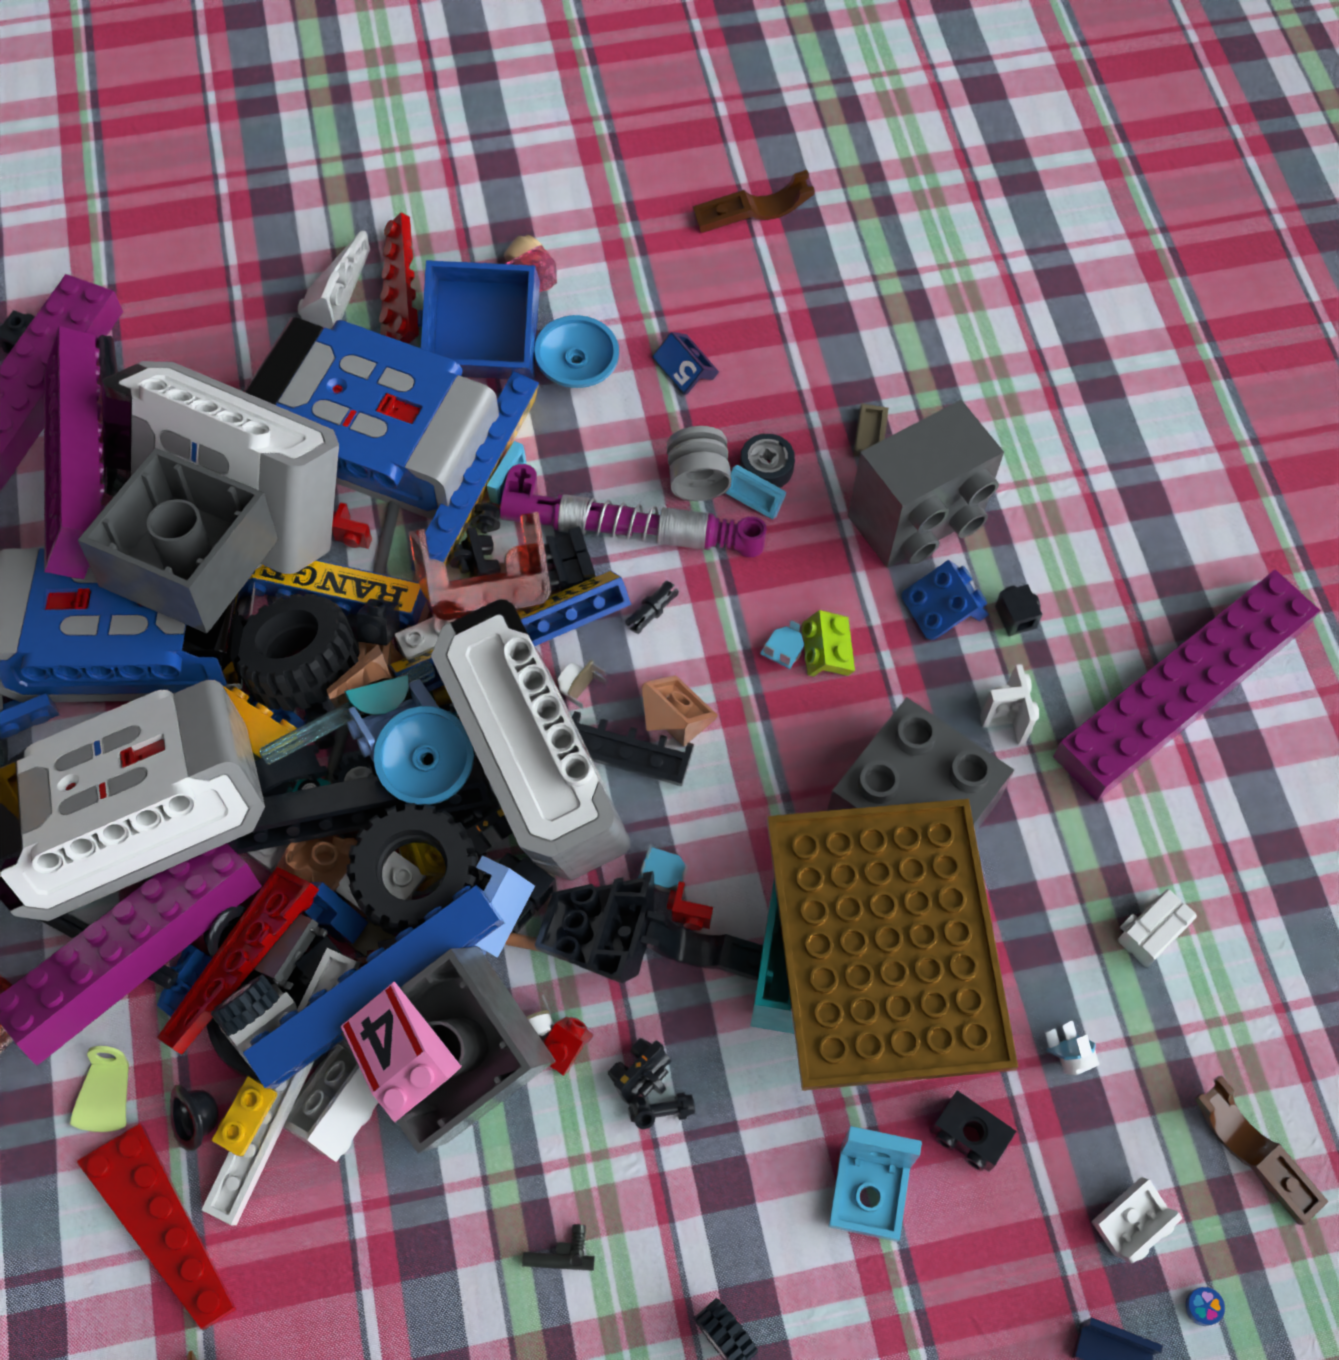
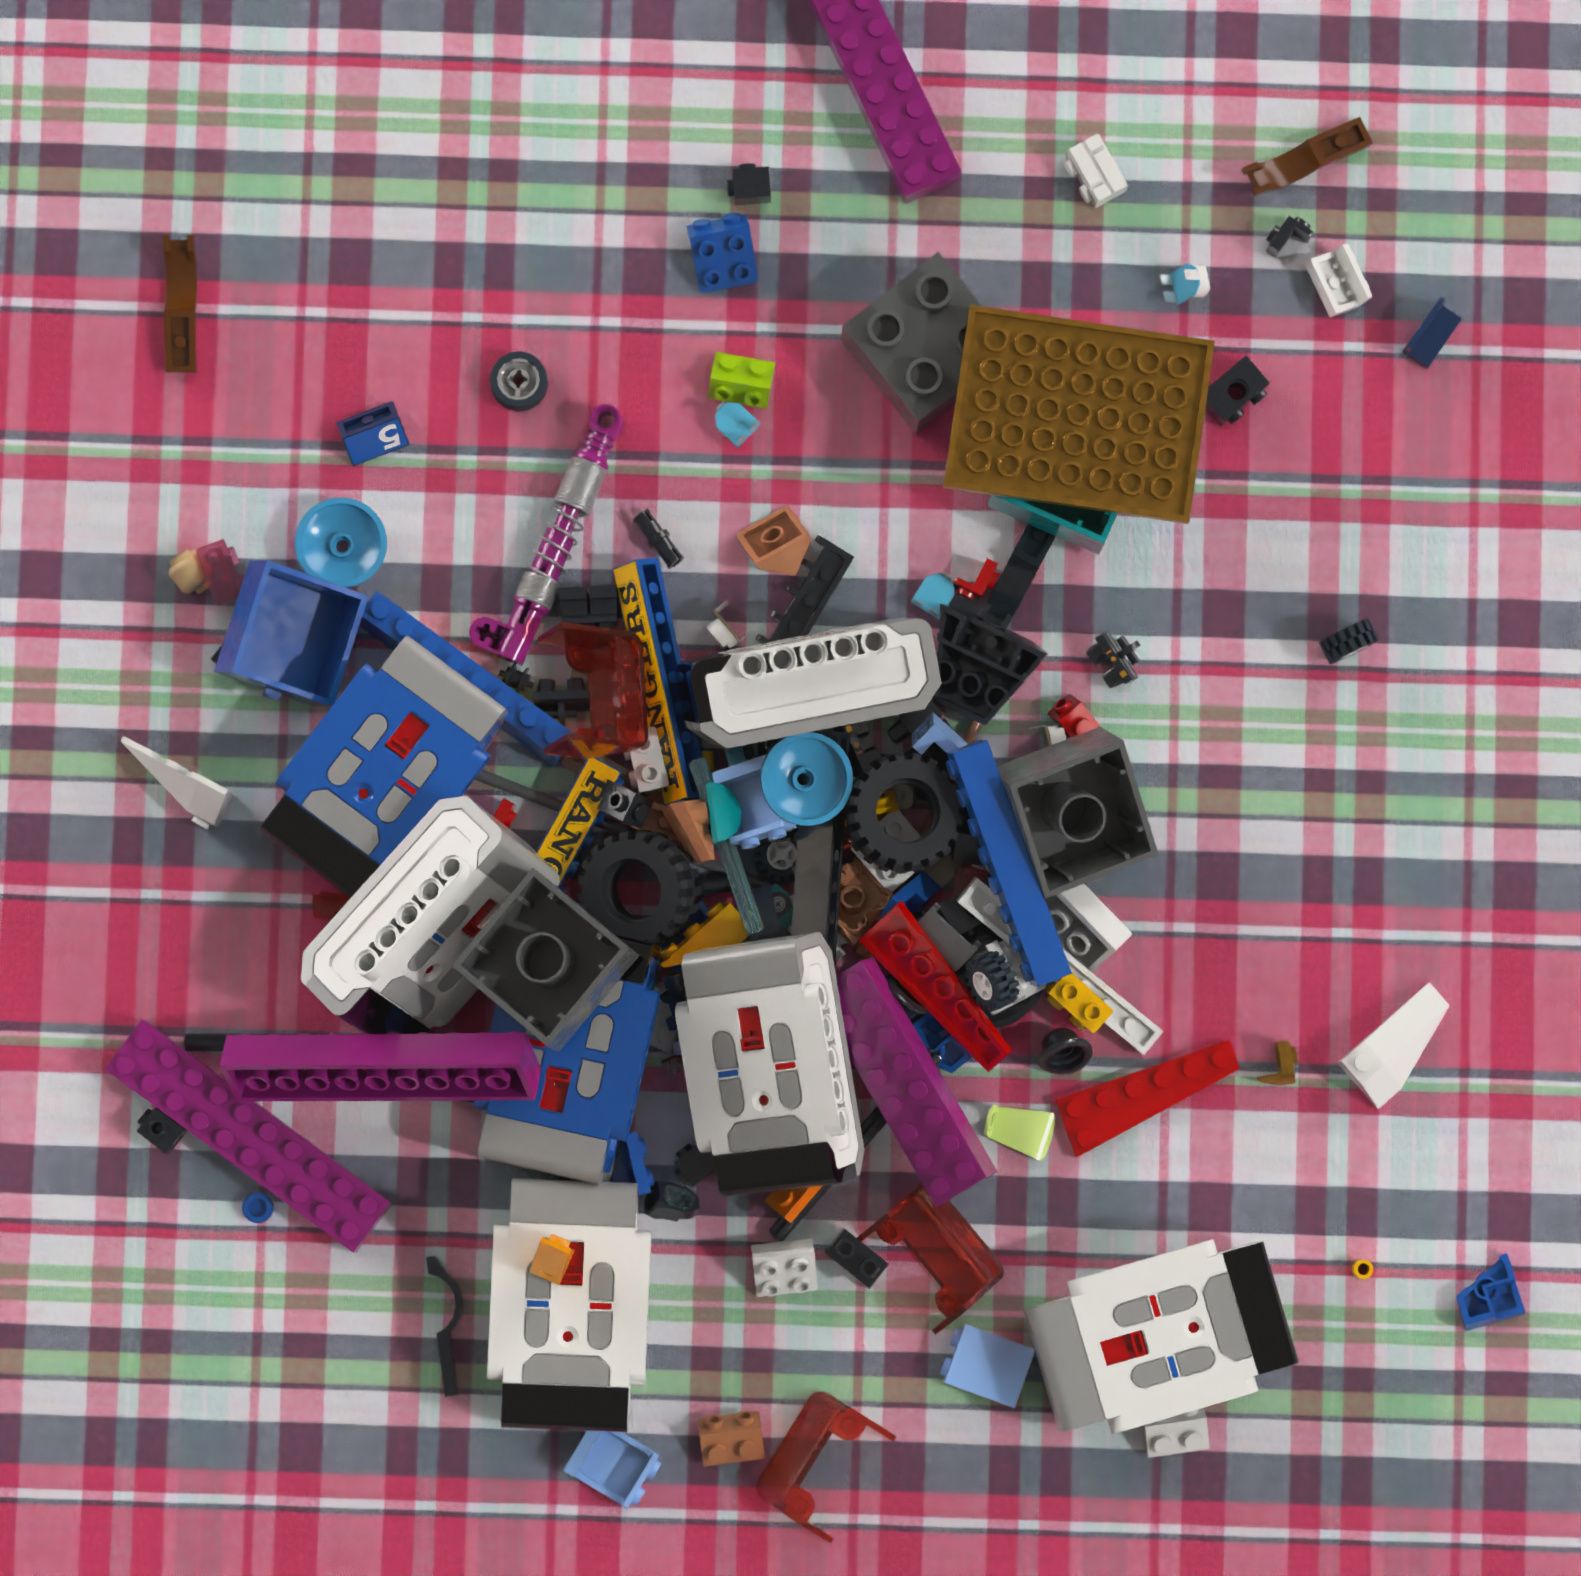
camera: 80 degrees left, 20 degrees up
(397, 315) = (253, 724): red wing -> none
(398, 1052) = (1081, 848): bright pink slope -> none
(496, 484) = (468, 647): medium azure tile -> none
(564, 1254) = (1250, 760): pearl dark grey hose -> none
(644, 1113) = (1152, 664): black bar -> none
(698, 463) = (514, 451): light grey wheel -> none
(755, 492) = (553, 403): medium azure tile -> none
(870, 427) = (504, 265): dark tan tile -> none
(876, 1163) = (1242, 487): medium azure bracket -> none
(925, 485) = (612, 236): dark grey brick -> none
(1012, 705) = (854, 223): white bracket -> none
(1162, 1143) = (1279, 236): none -> black bracket
(1205, 1306) = (1415, 249): blue tile -> none

